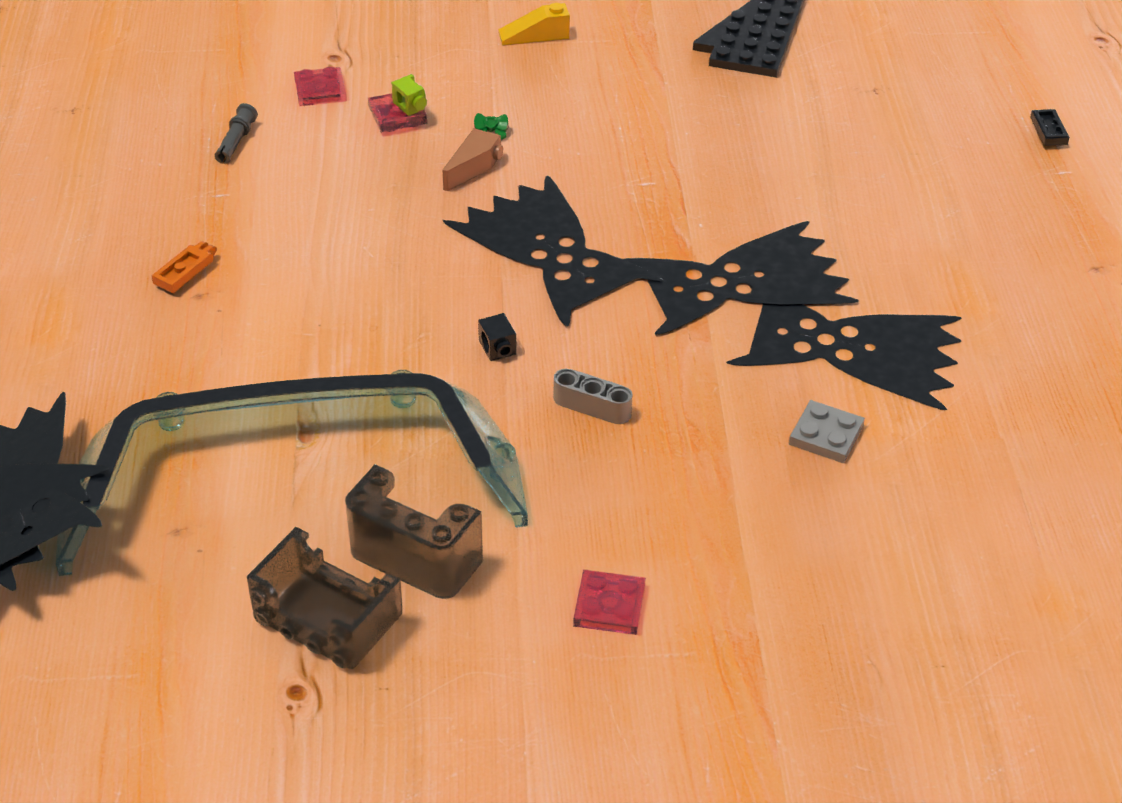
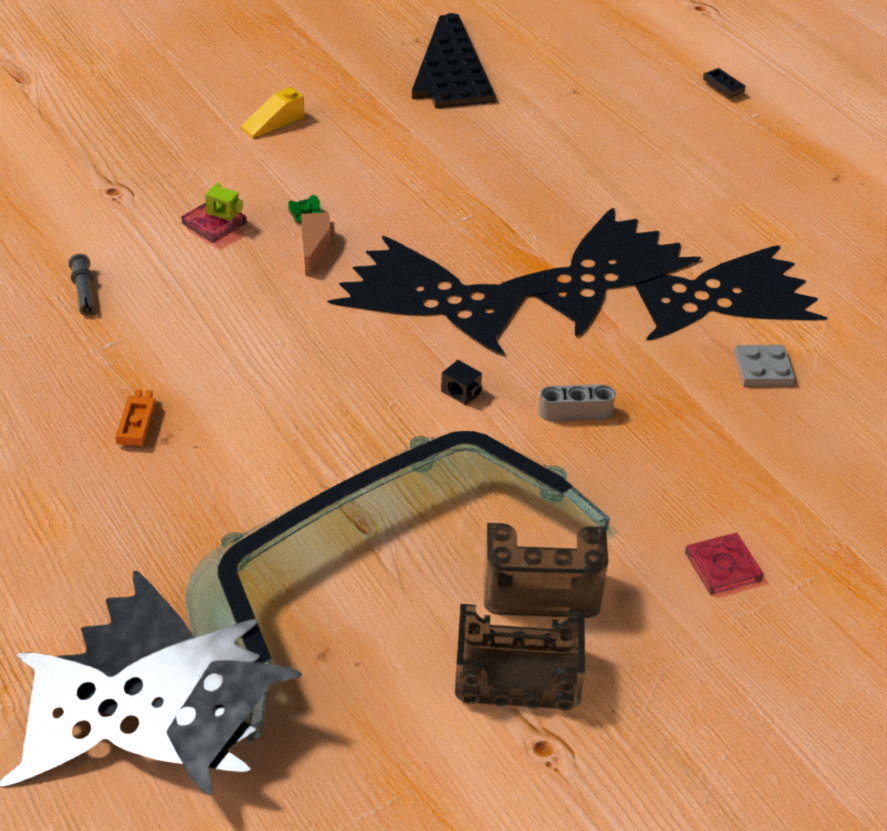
camera: 30 degrees left, 0 degrees up
(319, 86) = (123, 220): clear pink plate -> none

